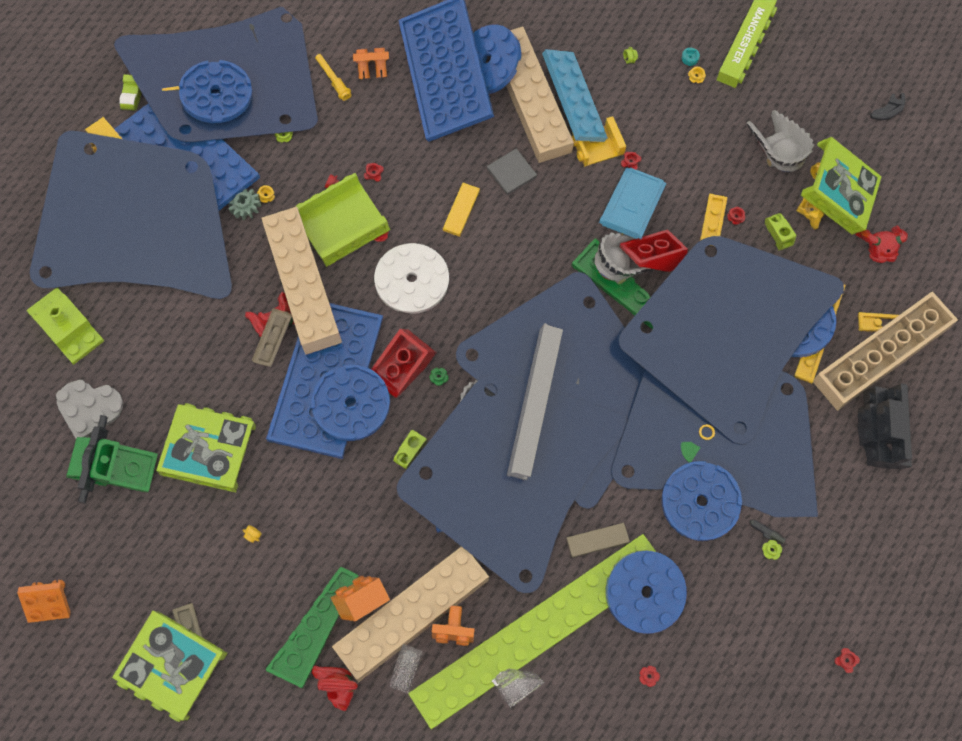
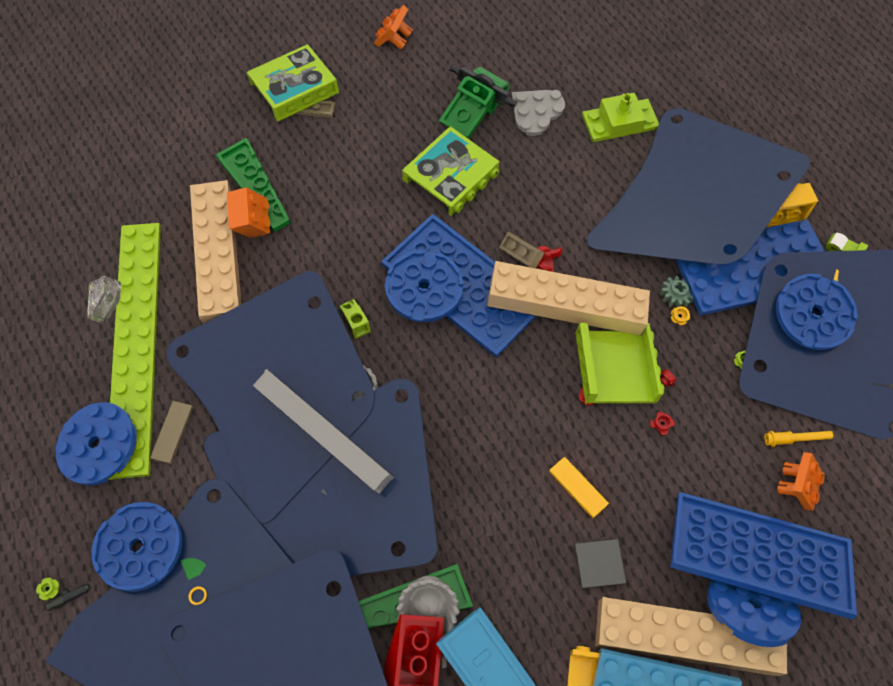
camera: 120 degrees right, 5 degrees down
(252, 534) = (358, 172): yellow plate -> none
(337, 684) = (194, 172): red hair -> none
(403, 361) = (442, 351): red slope -> none
(406, 668) = (179, 231): clear slope -> none
(411, 296) = (521, 422): white plate -> none
(438, 381) = (410, 371): green plate -> none
(453, 630) = (176, 269): orange plate -> none
(650, 682) = (35, 411): red plate -> none

